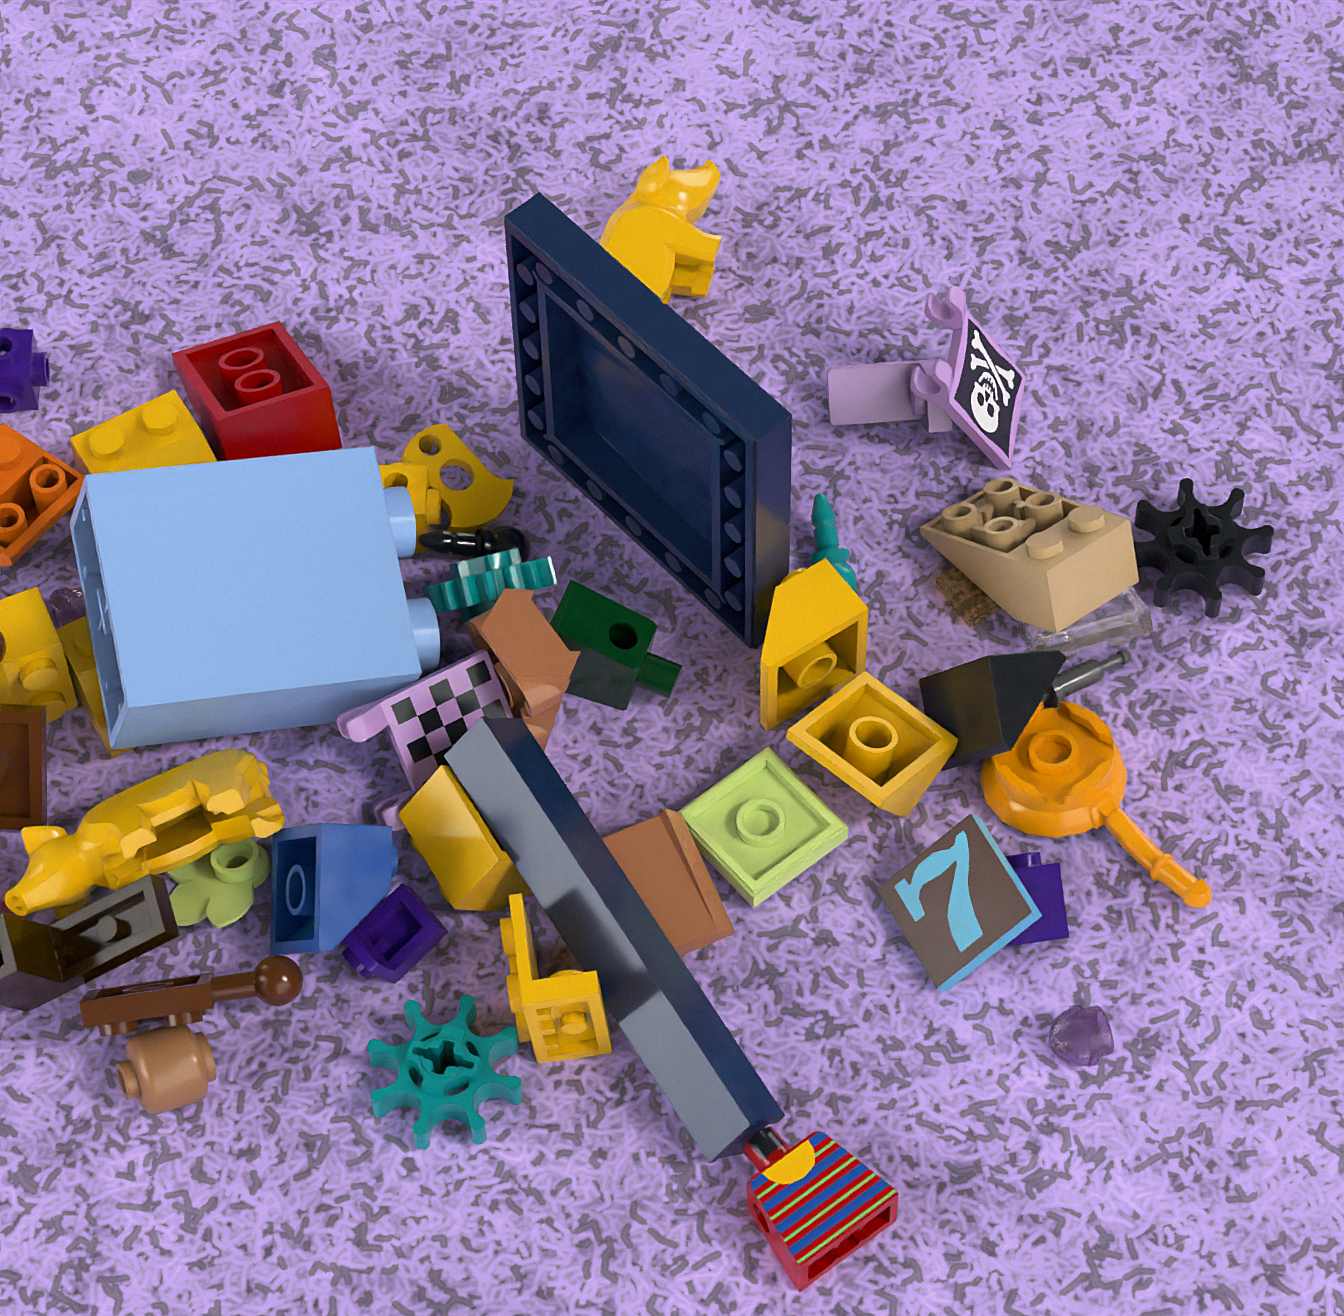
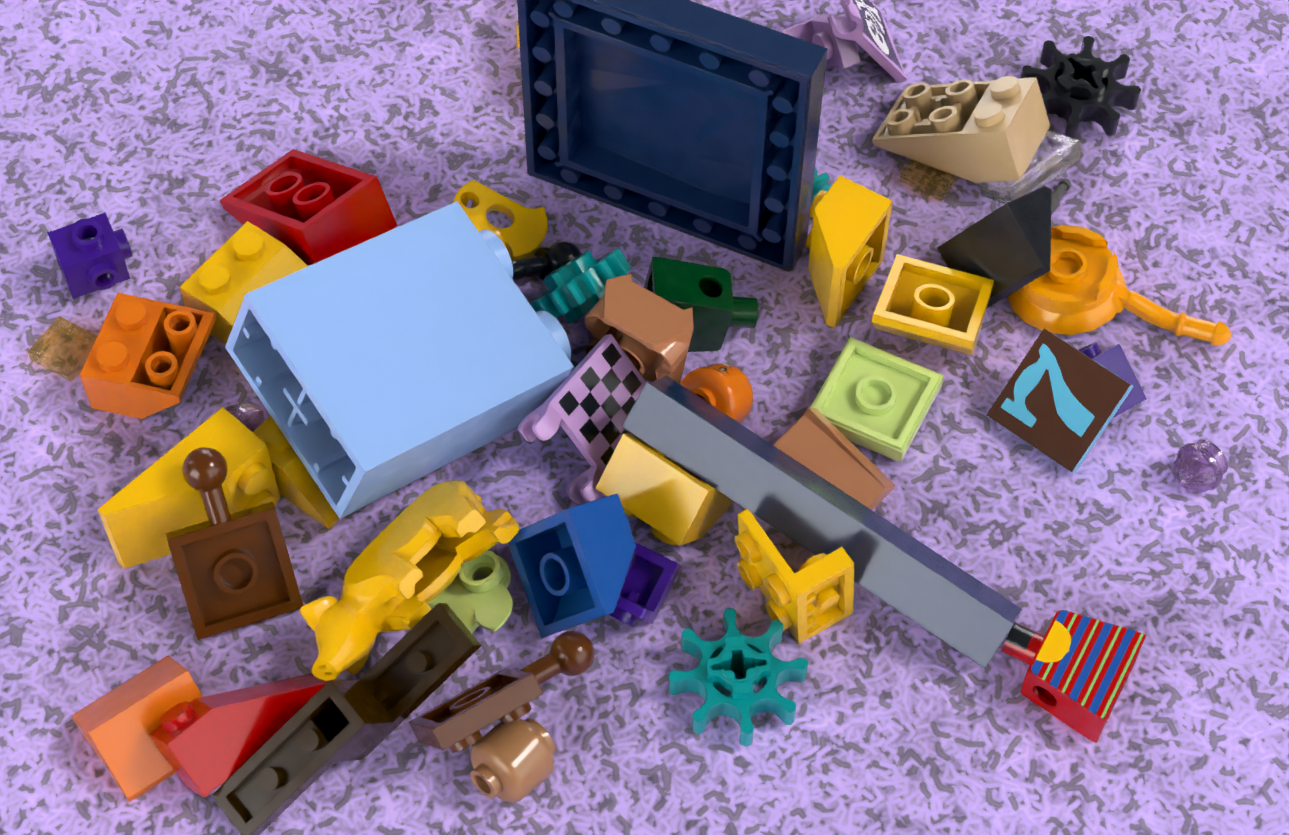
camera: 25 degrees left, 0 degrees up
(585, 758) = (723, 388): none -> orange head

